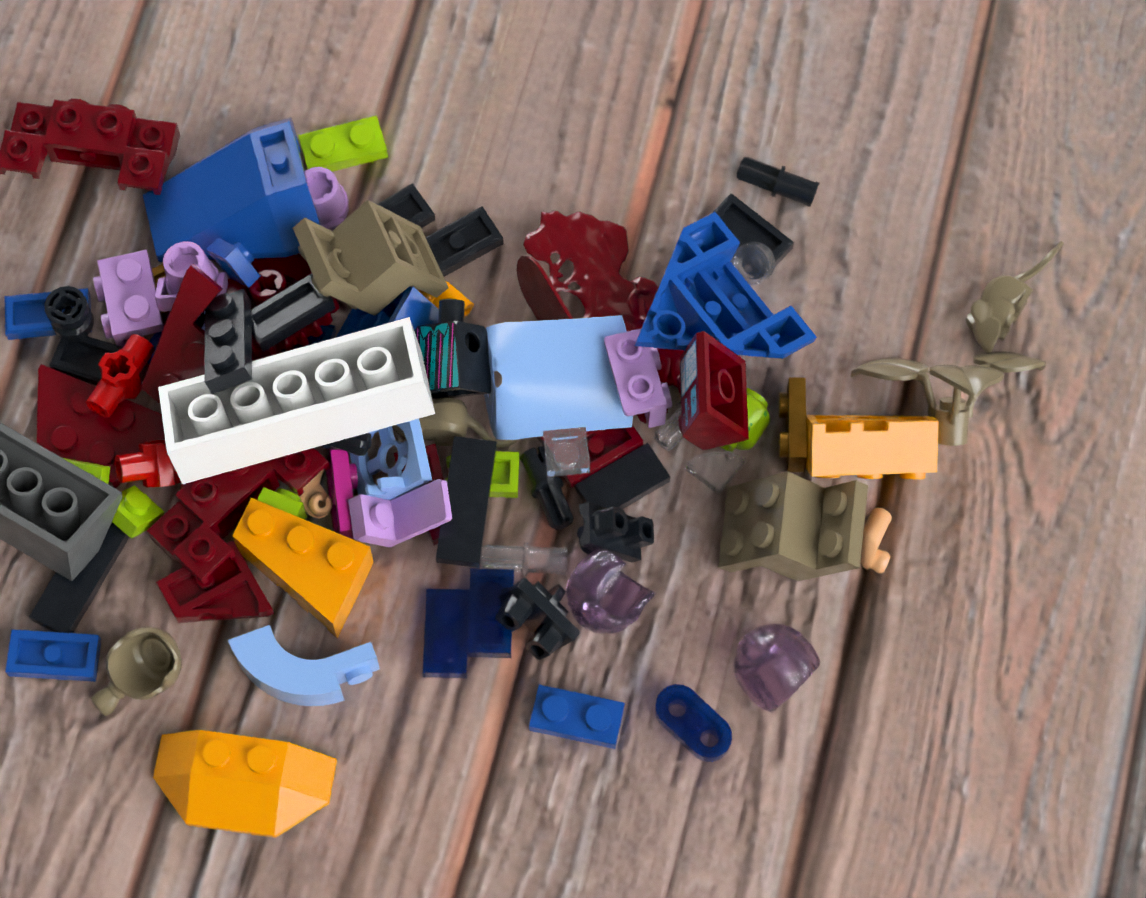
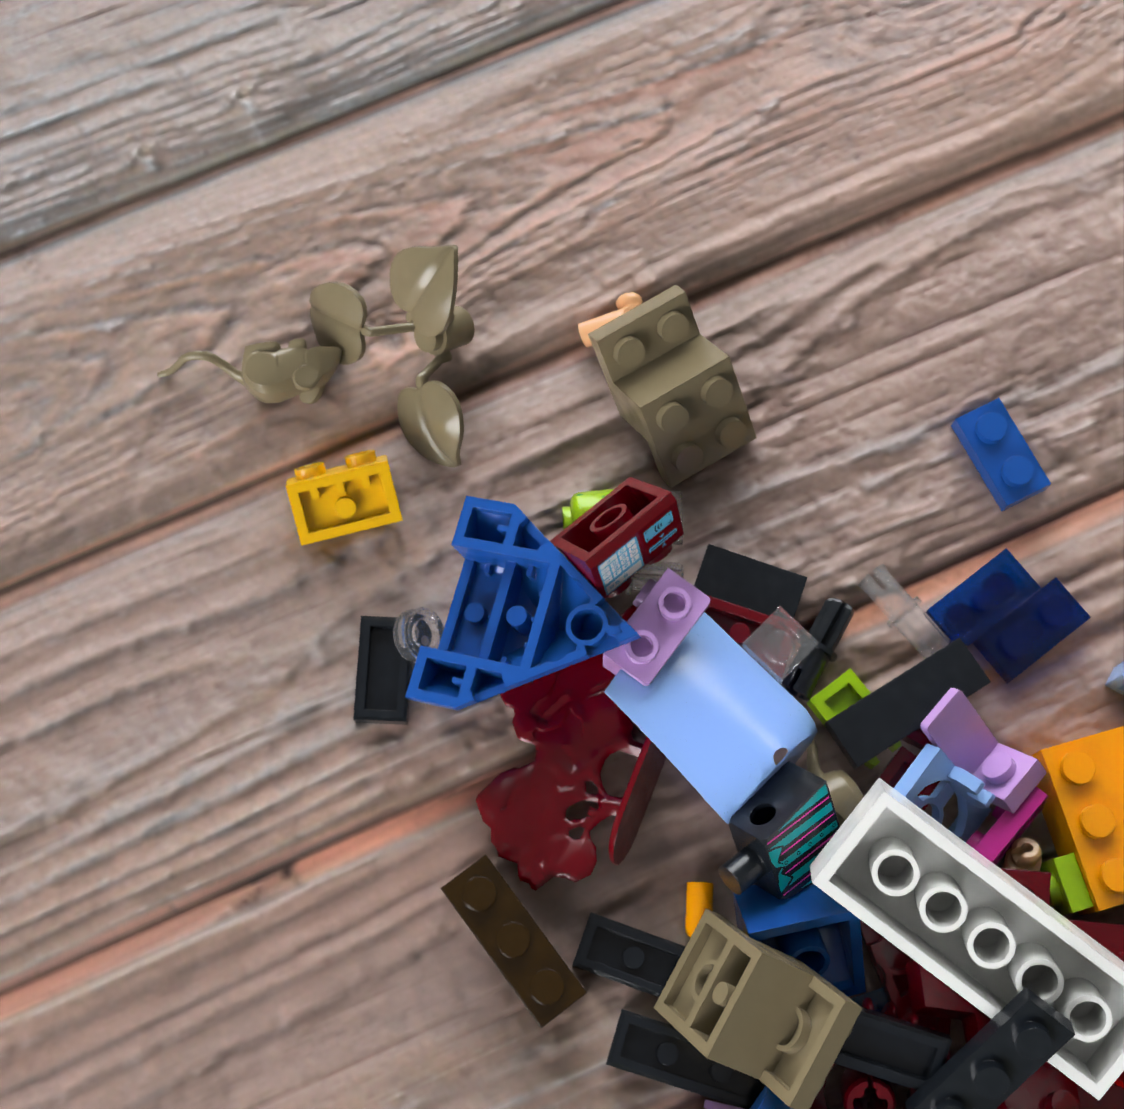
camera: 130 degrees left, 5 degrees up
(521, 180) = (513, 941): none -> dark brown brick
(540, 613) = (965, 565): black hips -> none
(603, 595) = (884, 516): clear purple piece -> none
(614, 531) = (815, 544): black hips -> none
(694, 723) = (920, 351): clear blue plate -> none
(773, 664) = (814, 310): clear purple piece -> none
(777, 181) = (303, 681): black axle -> none
(793, 408) = (546, 480): pearl gold plate -> none
(871, 446) = (536, 379): light orange wedge -> none
(883, 284) = (342, 497): none -> yellow bracket

